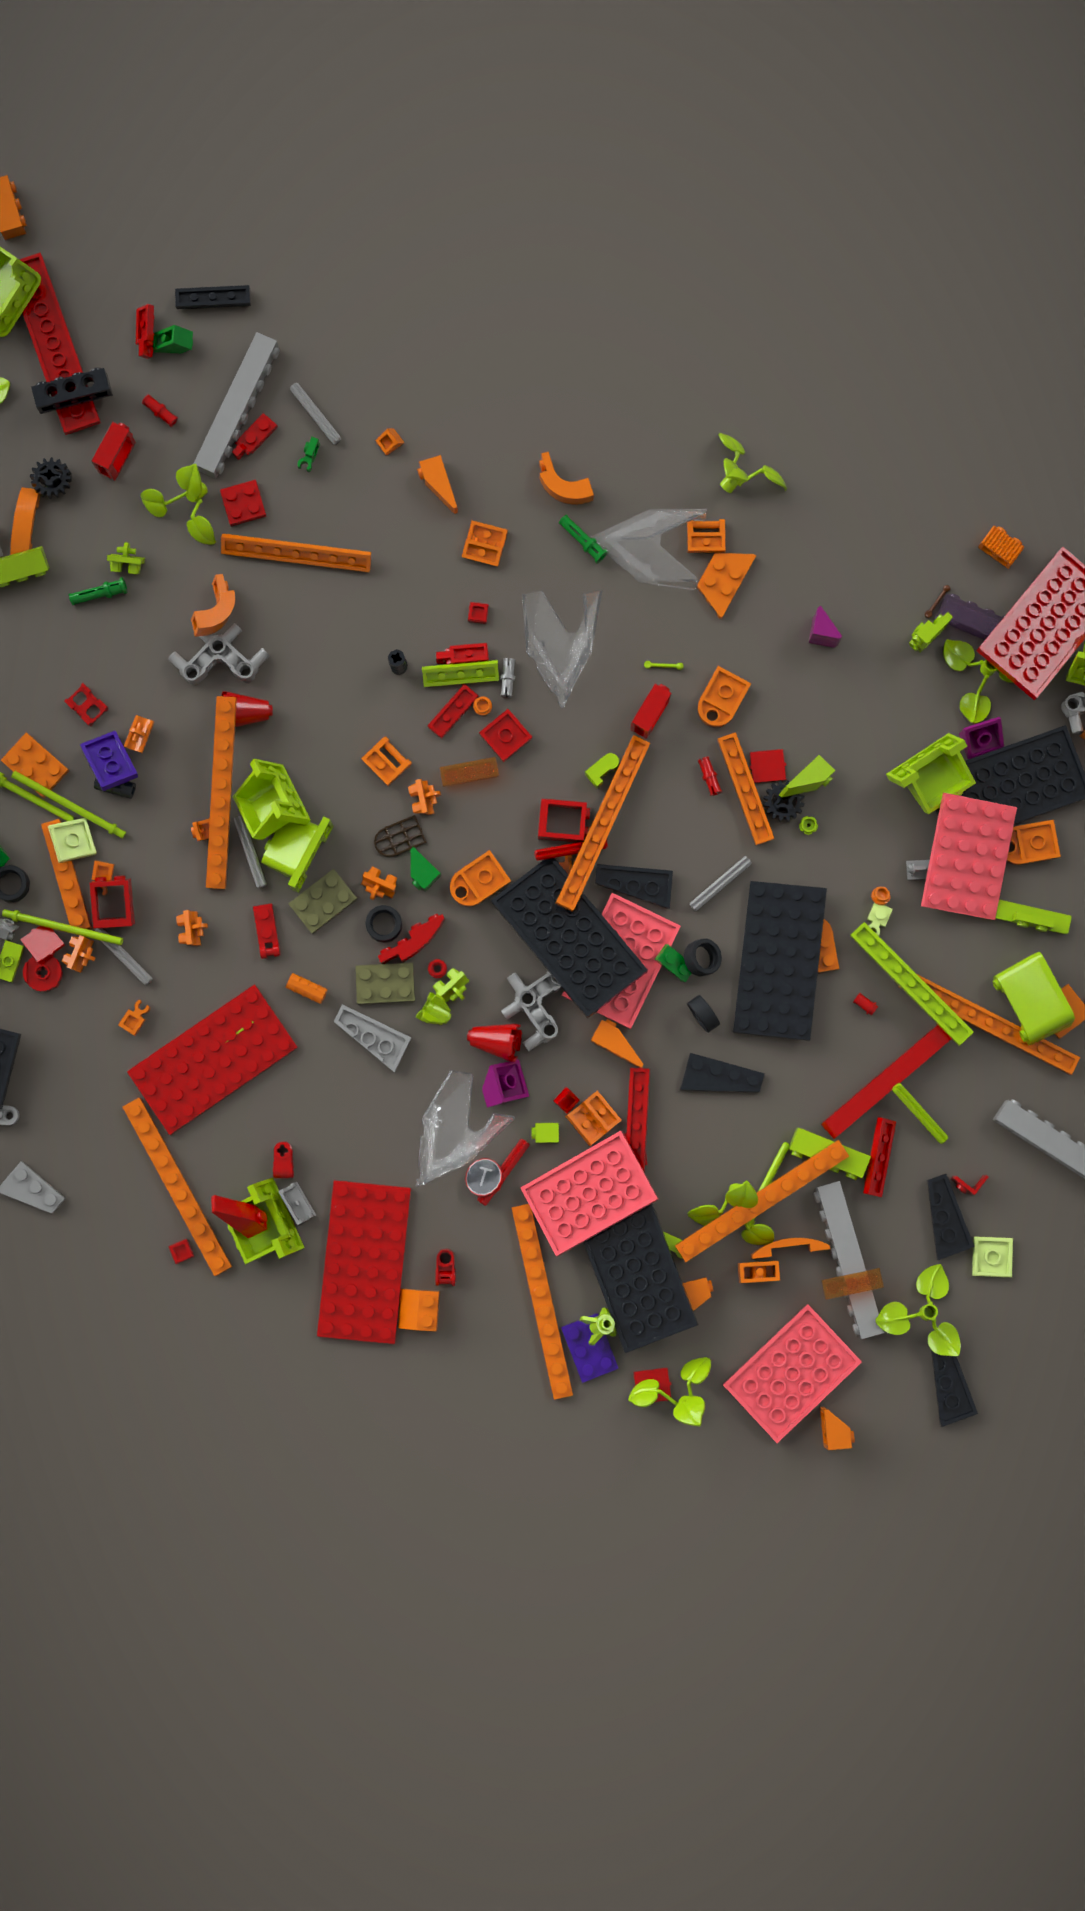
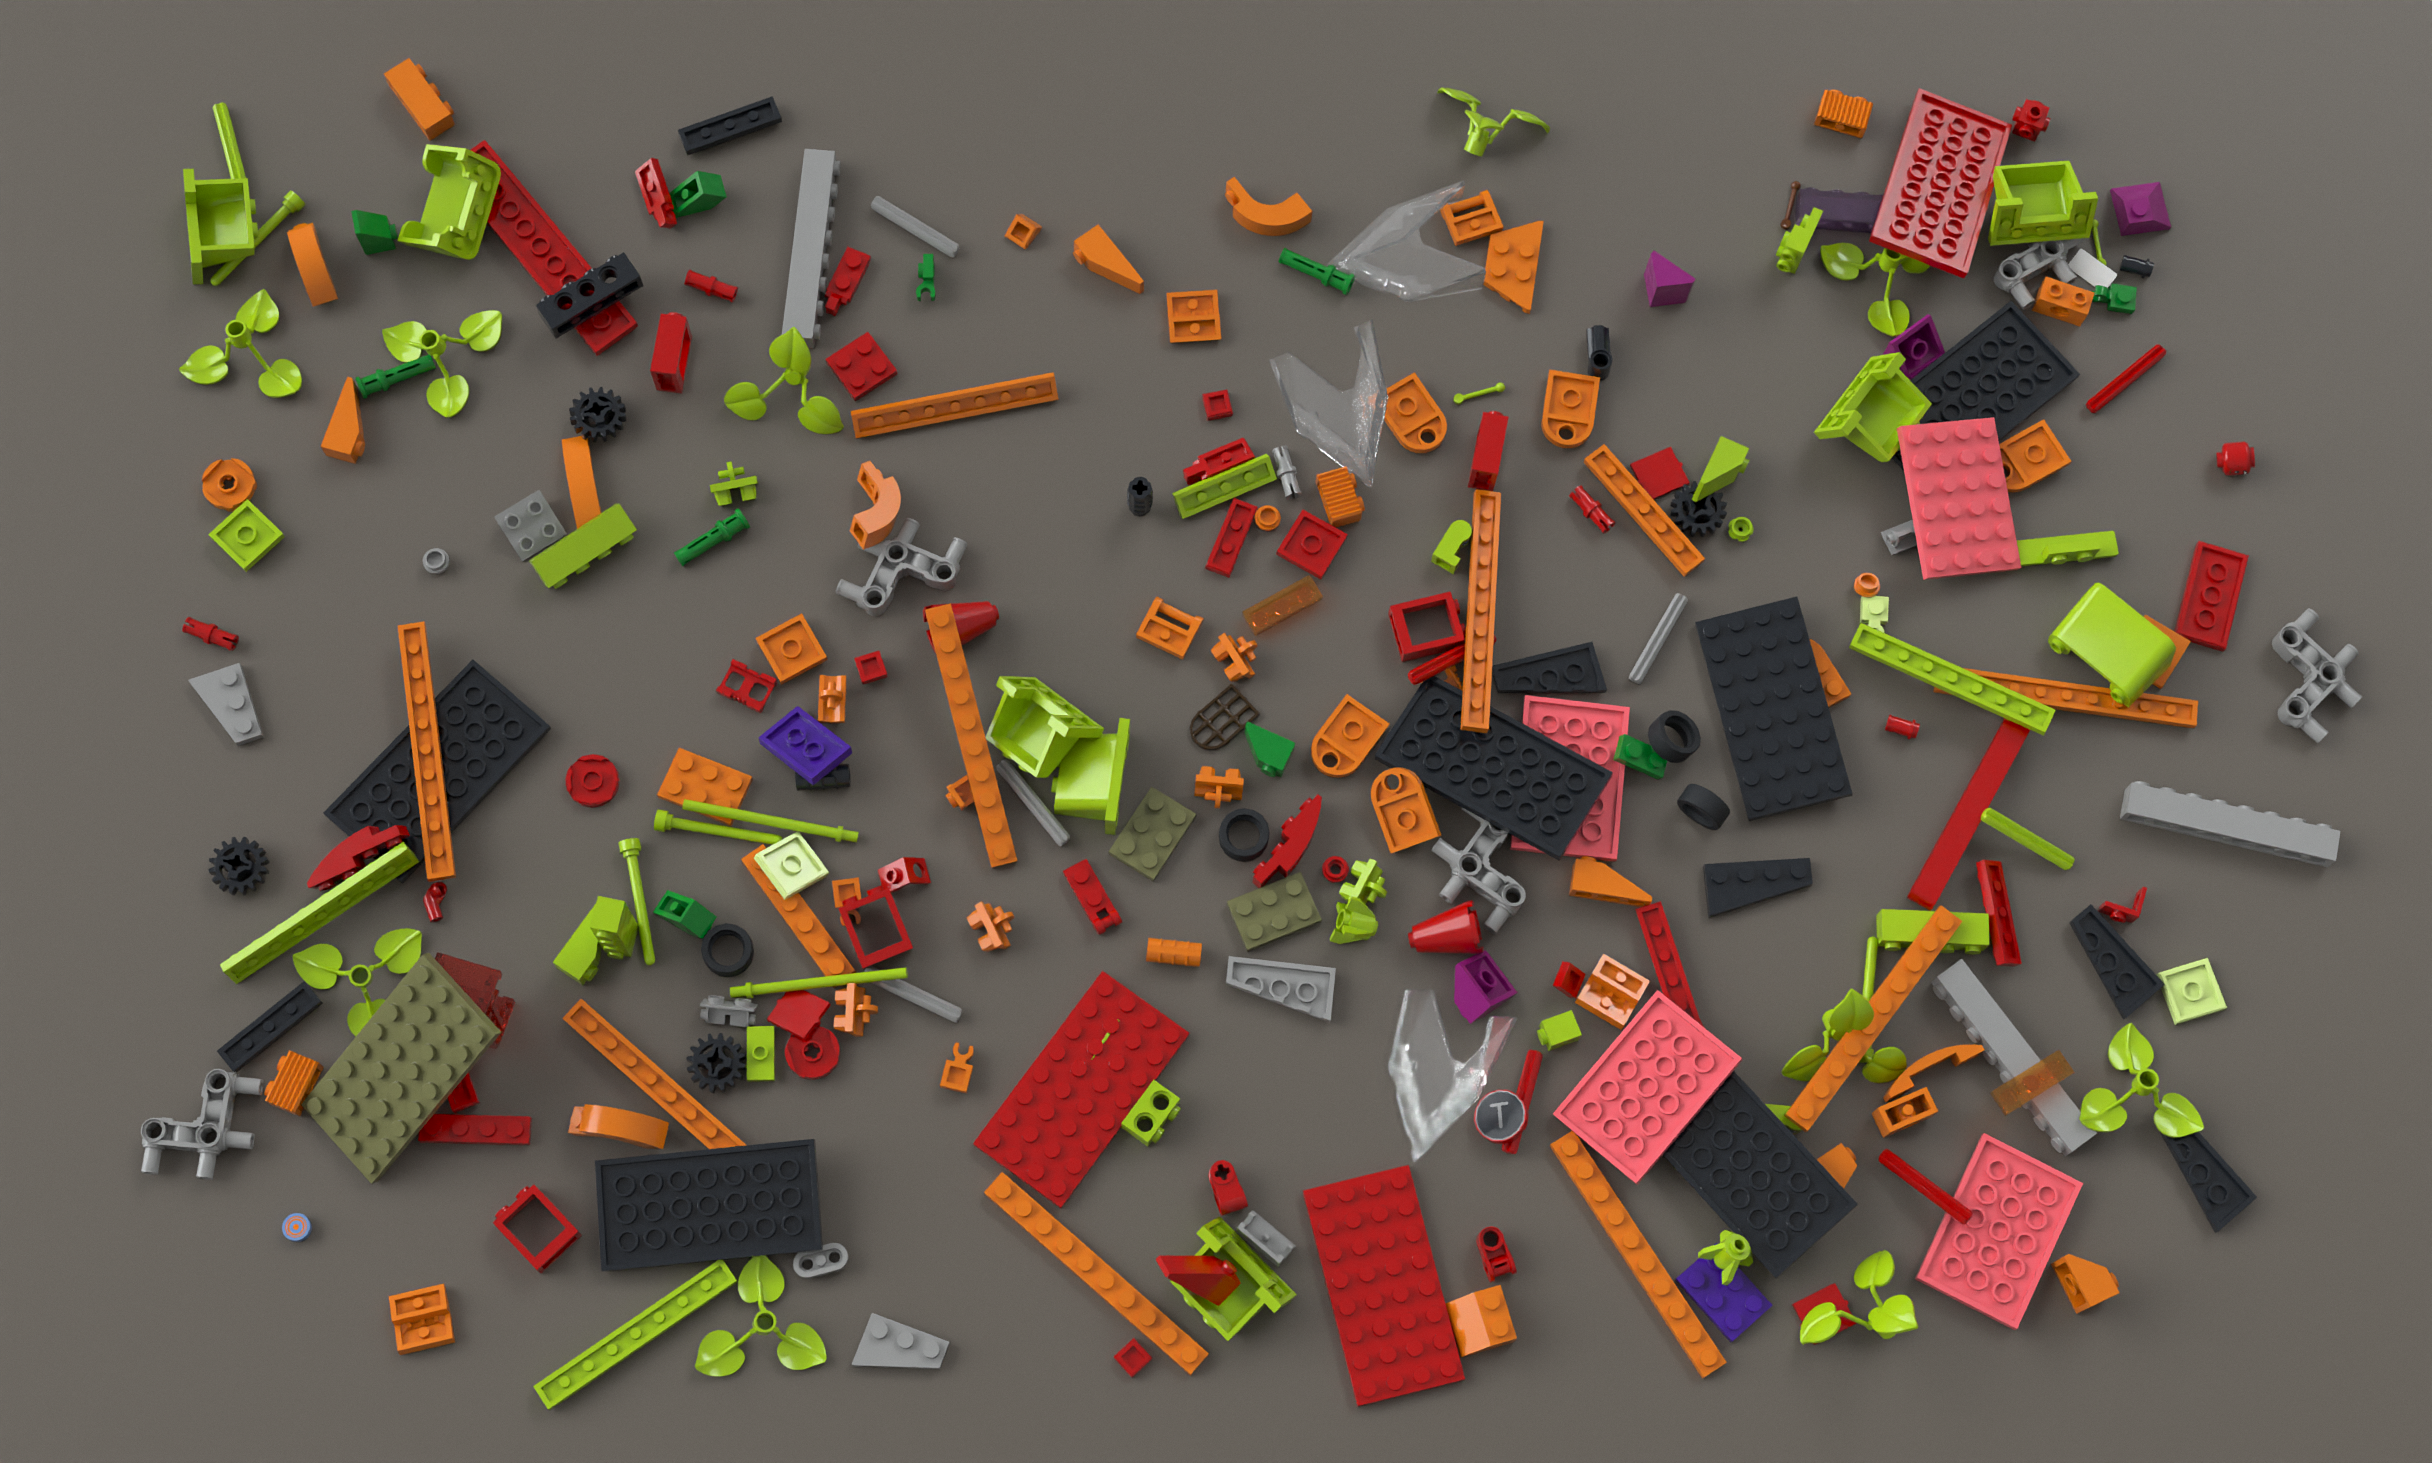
camera: 25 degrees left, 10 degrees down
(125, 689) = (791, 648): none -> orange plate
(143, 871) = (901, 873): none -> red bracket
(174, 720) = (870, 667): none -> red plate
(249, 1089) = (1145, 1110): none -> lime brick
(496, 945) = (1403, 811): none -> orange plate
(537, 708) = (1339, 496): none -> orange brick
(610, 664) = (1412, 413): none -> orange plate
(753, 1326) = (1925, 1186): none -> red axle
(758, 663) = (1598, 351): none -> black piece

